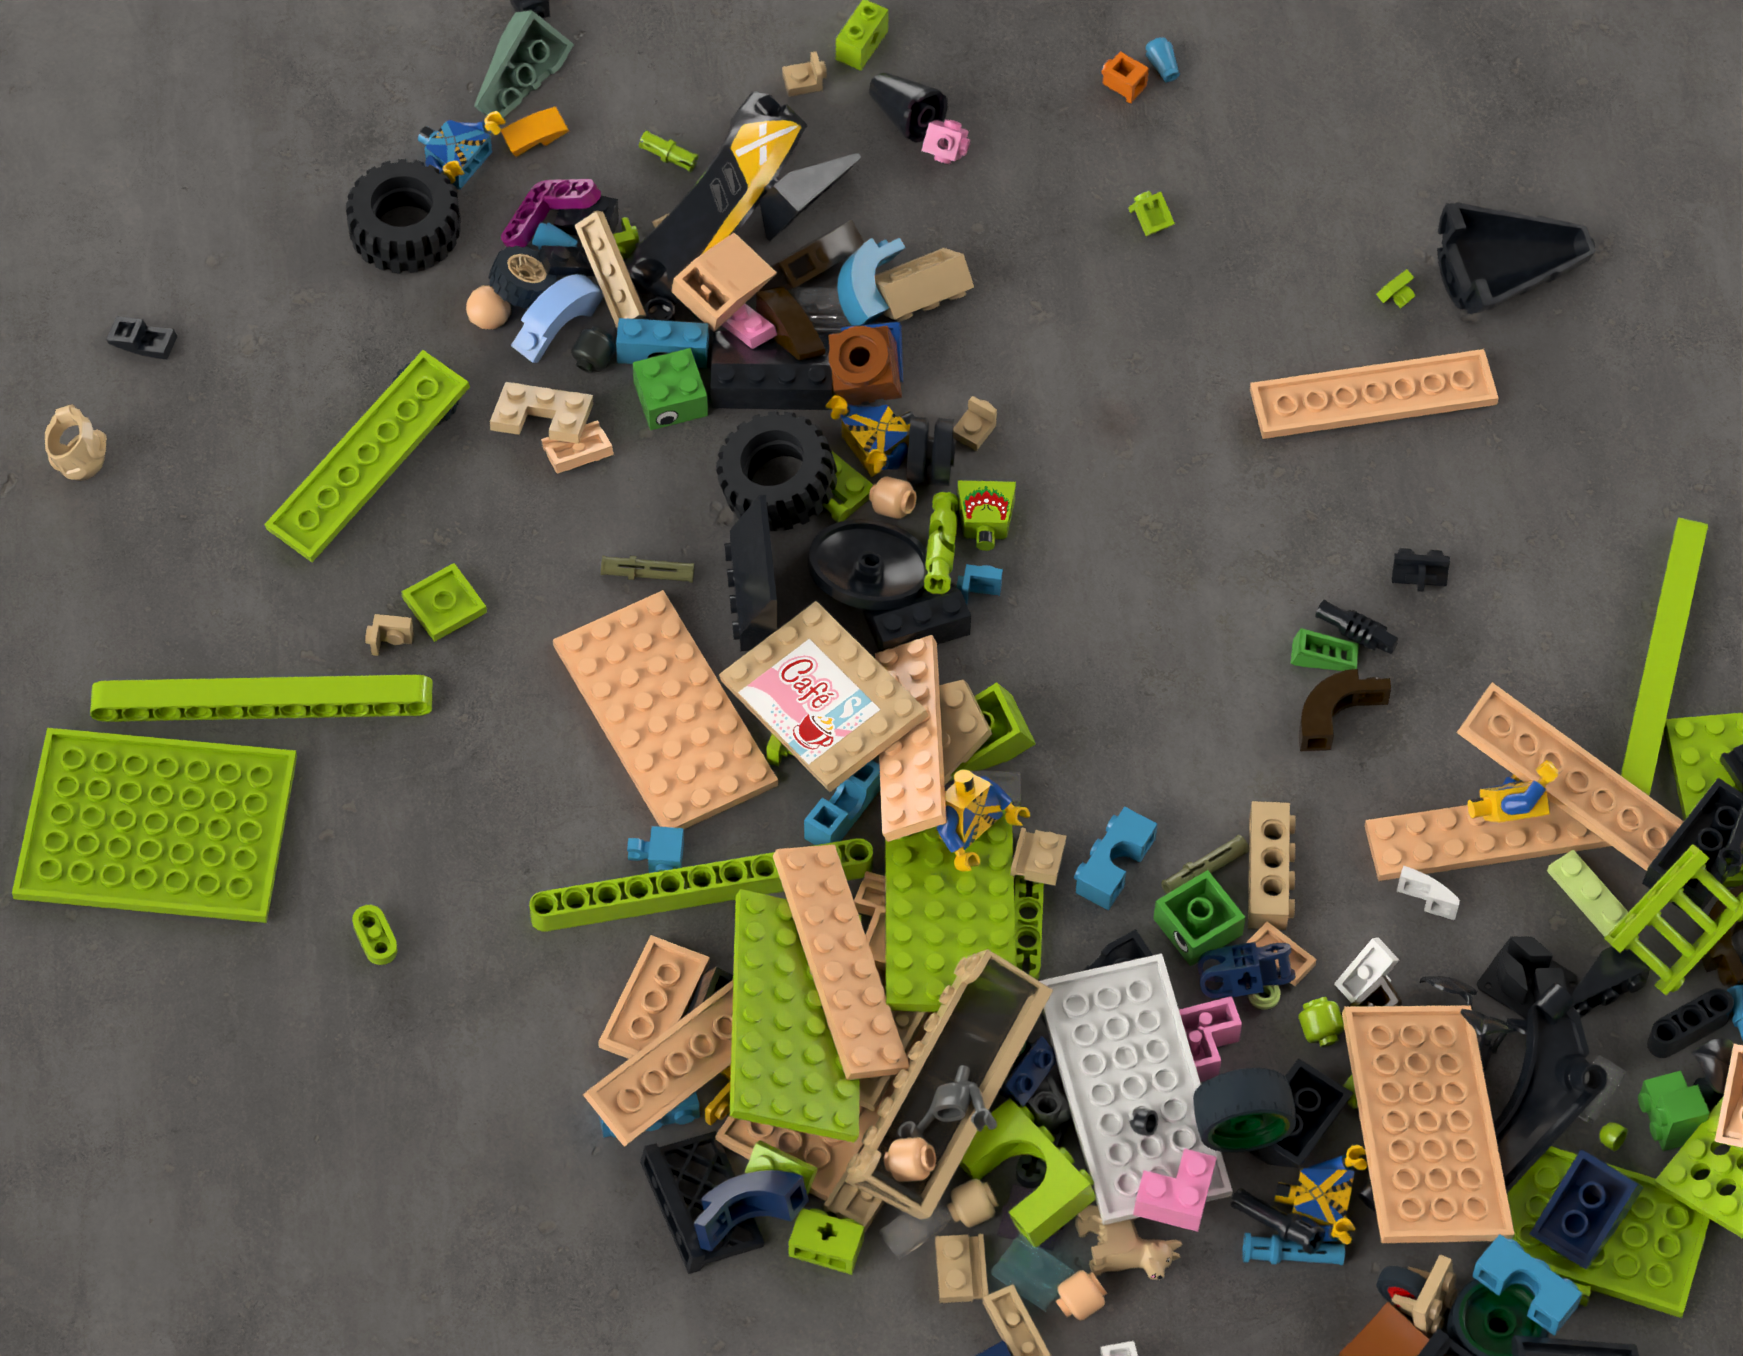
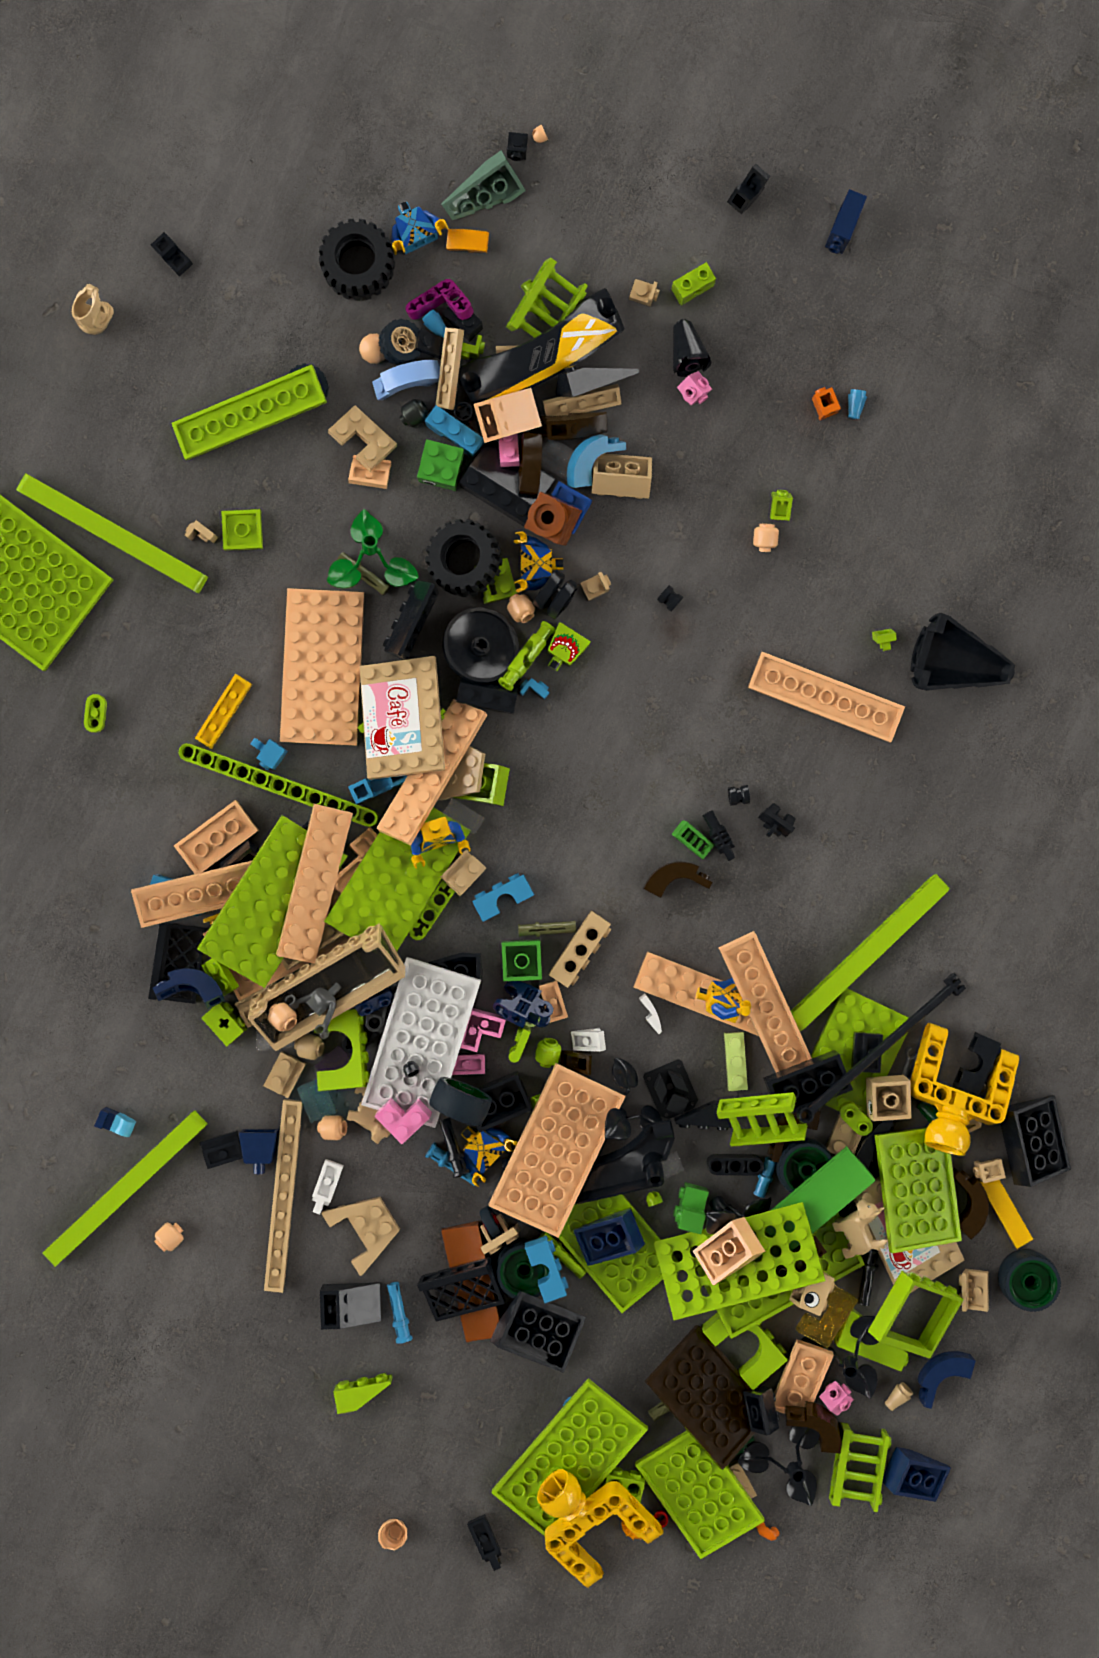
camera: 30 degrees right, 30 degrees up
(559, 835) = (223, 711): none -> yellow tile
(614, 516) = (368, 531): none -> green plant
(665, 129) = (538, 288): none -> lime fence
(815, 222) = (586, 402): none -> tan plate
(1091, 386) = (670, 598): none -> black wheel
(1158, 255) = (766, 537): none -> light nougat head
(1273, 1021) = (521, 1039): none -> lime plate
(1343, 566) = (738, 795): none -> black wheel

